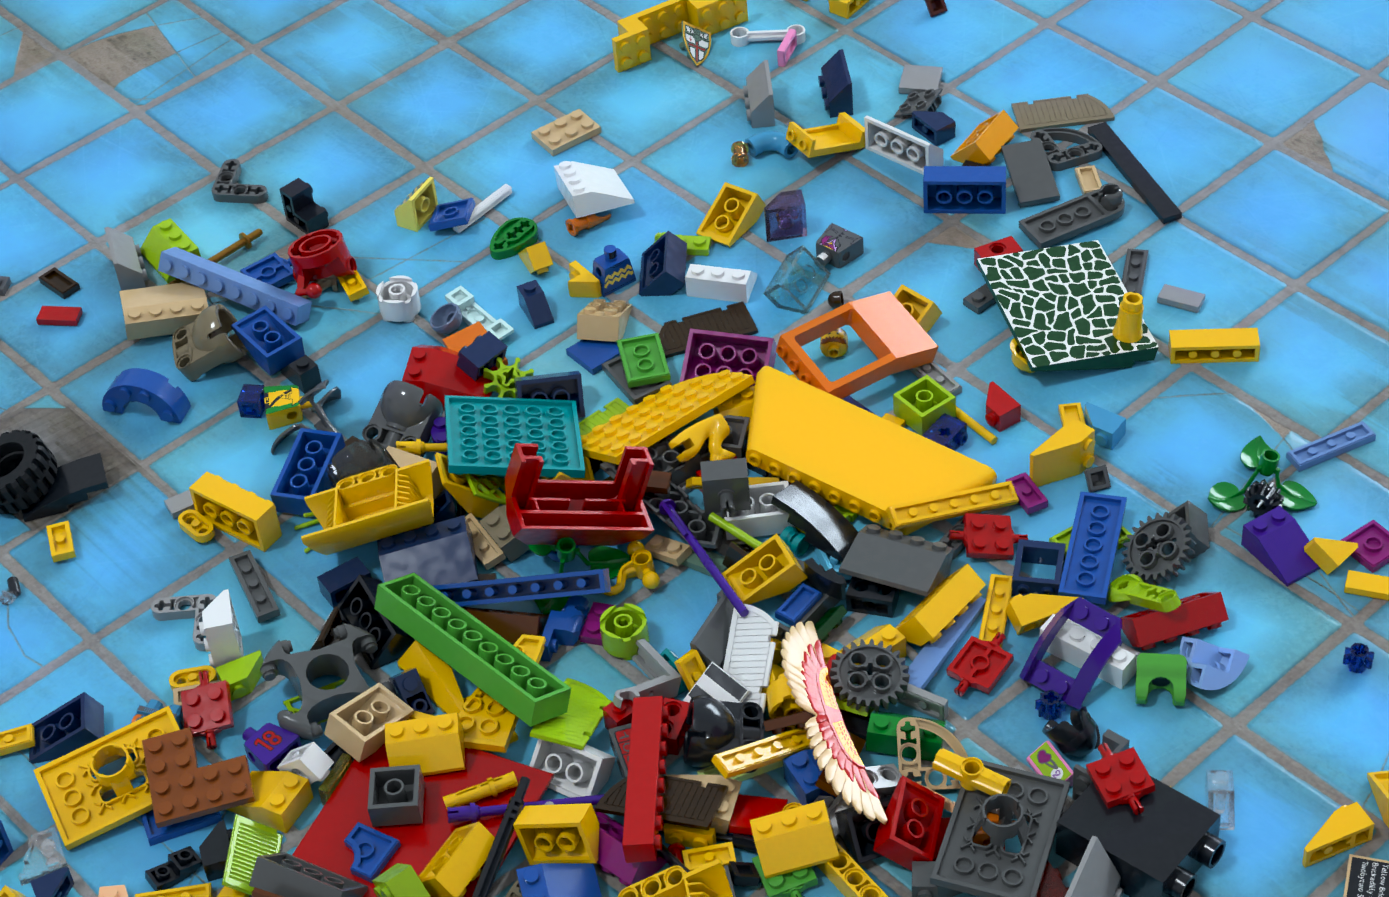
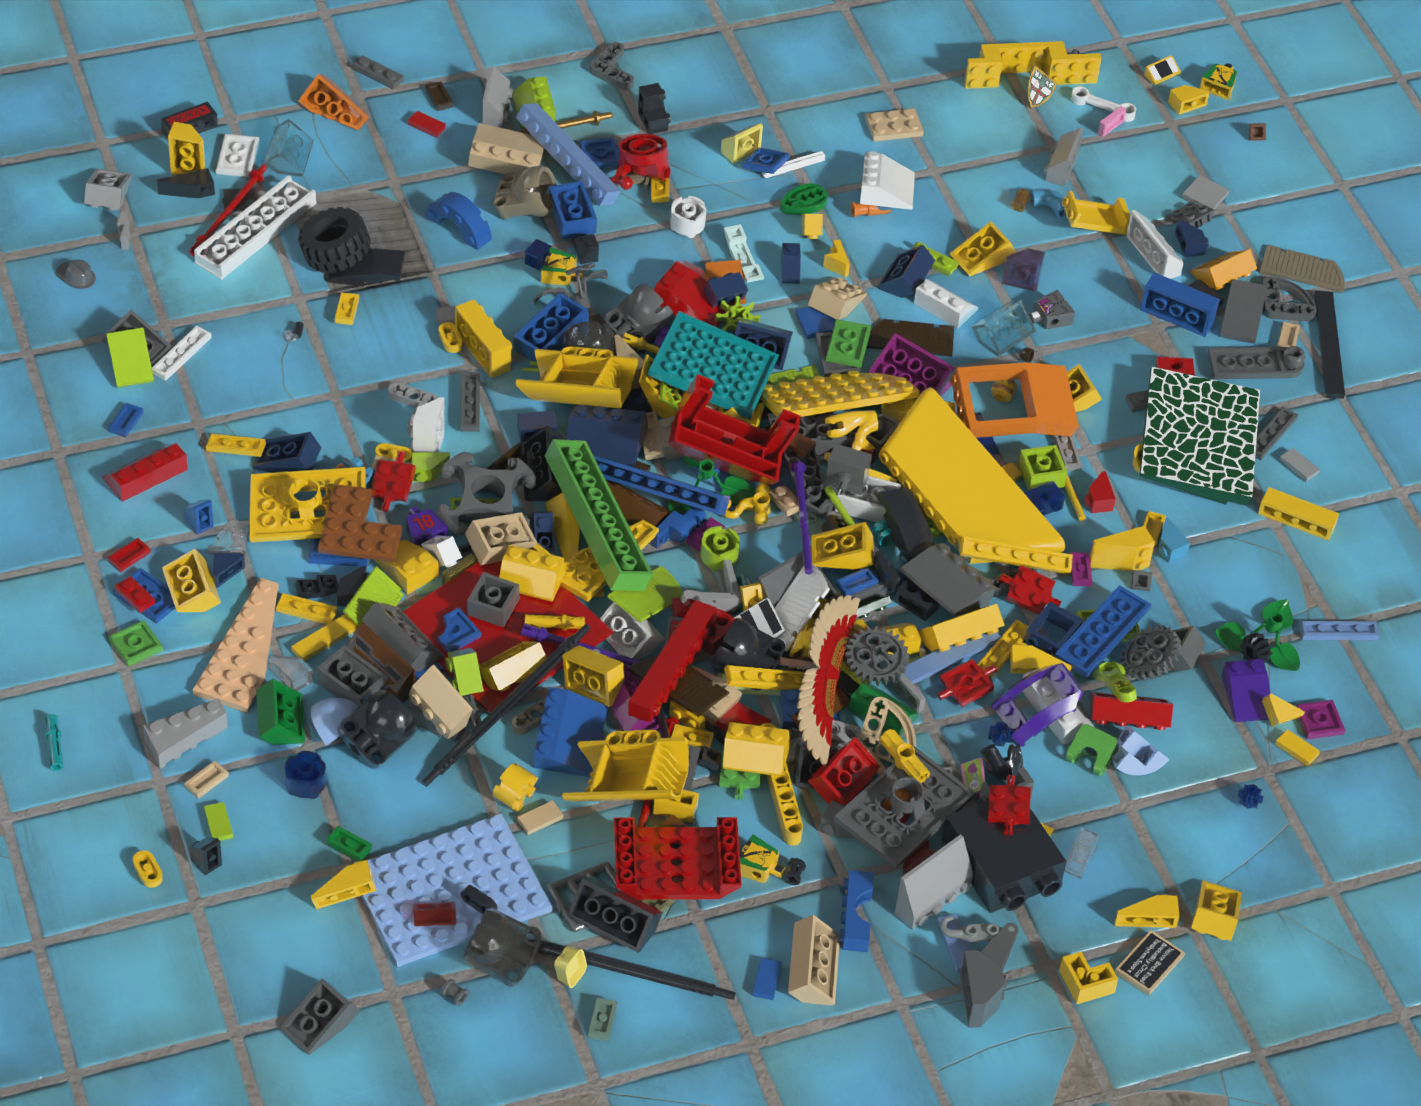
camera: 15 degrees right, 5 degrees up
(446, 318) = (716, 247): sand blue piece -> none
(613, 270) = (864, 259): blue torso -> none
(836, 85) = (1130, 173): dark blue slope -> none
(1129, 319) = (1237, 467): yellow plant -> none

